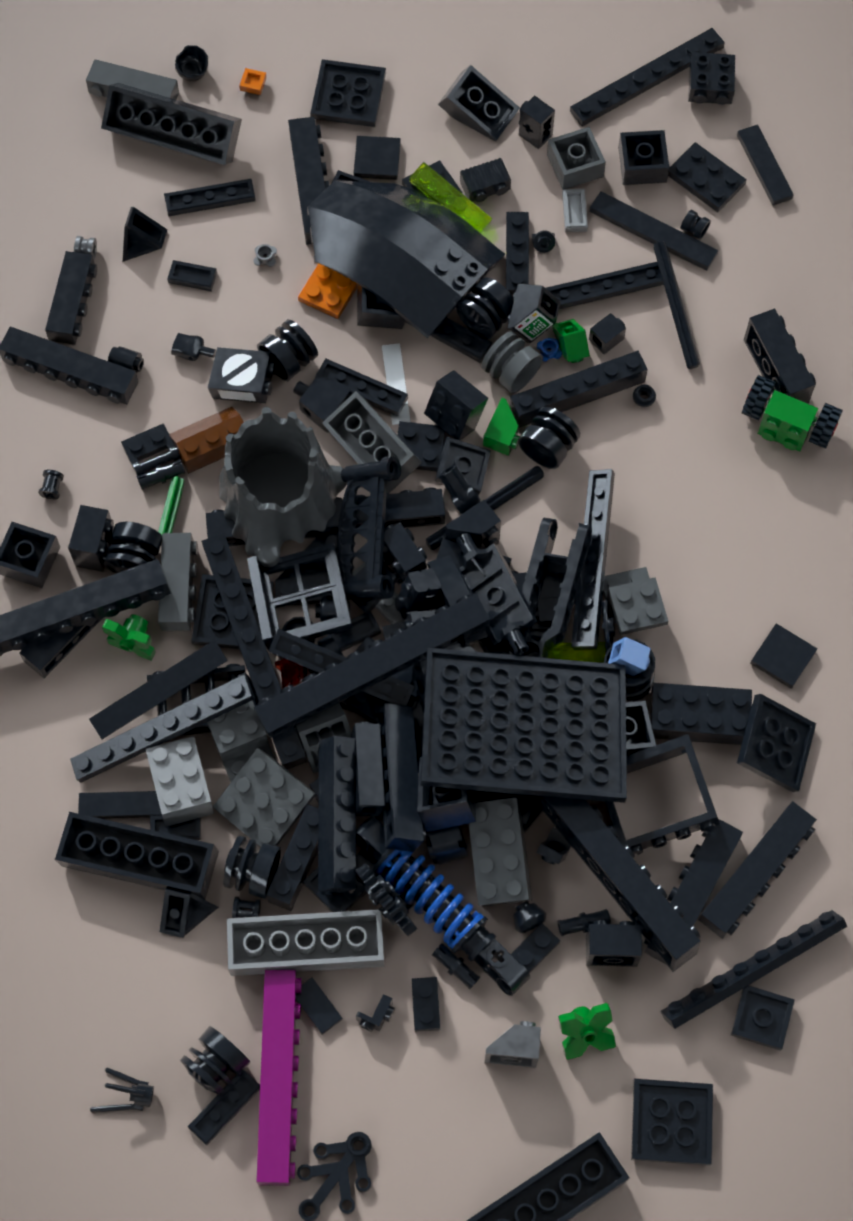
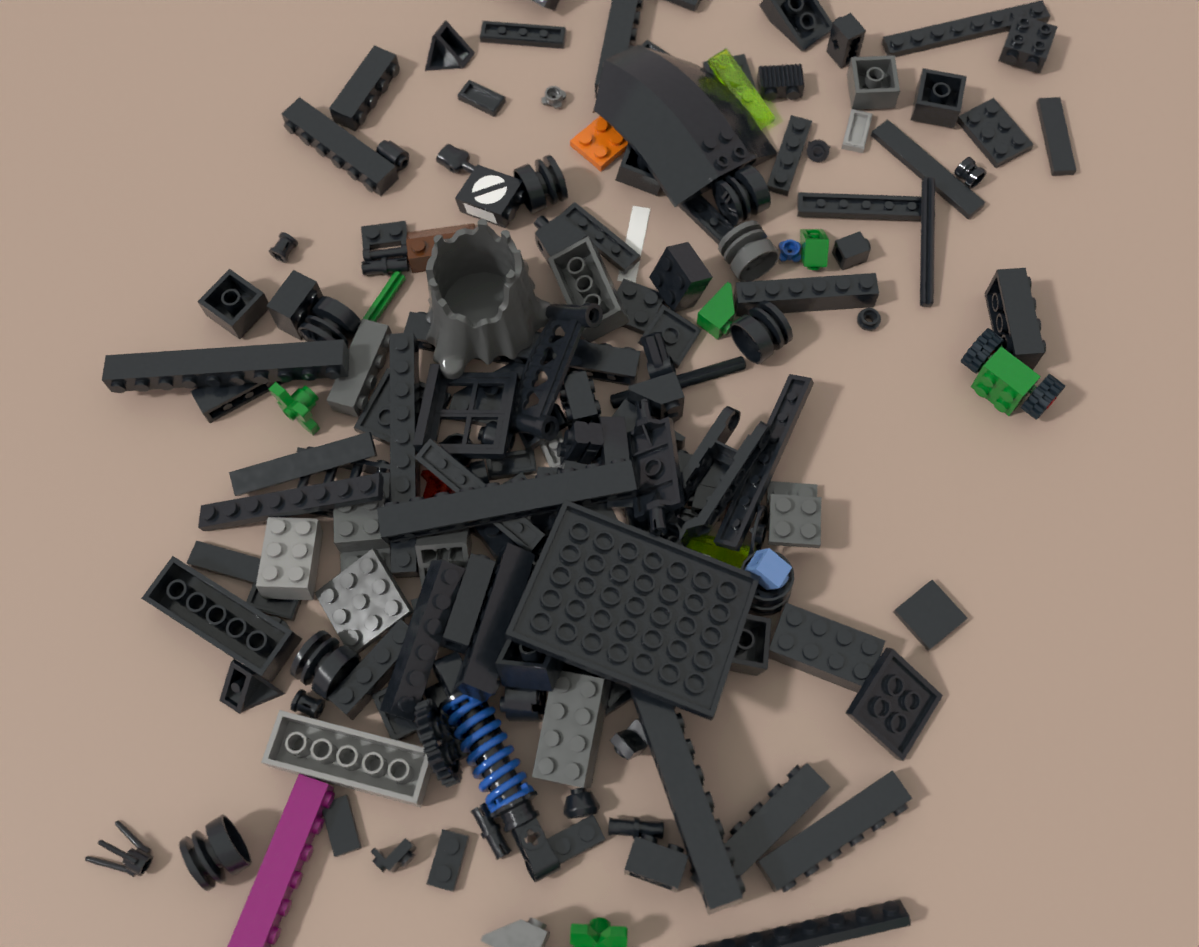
camera: 20 degrees right, 0 degrees up
(85, 246) = (397, 47): flat silver wheel -> none
(225, 1108) = (210, 903): black tile -> none
(377, 157) = (687, 38): black tile -> none
(532, 311) = (784, 209): black slope -> none
(678, 830) = (763, 765): black window -> none

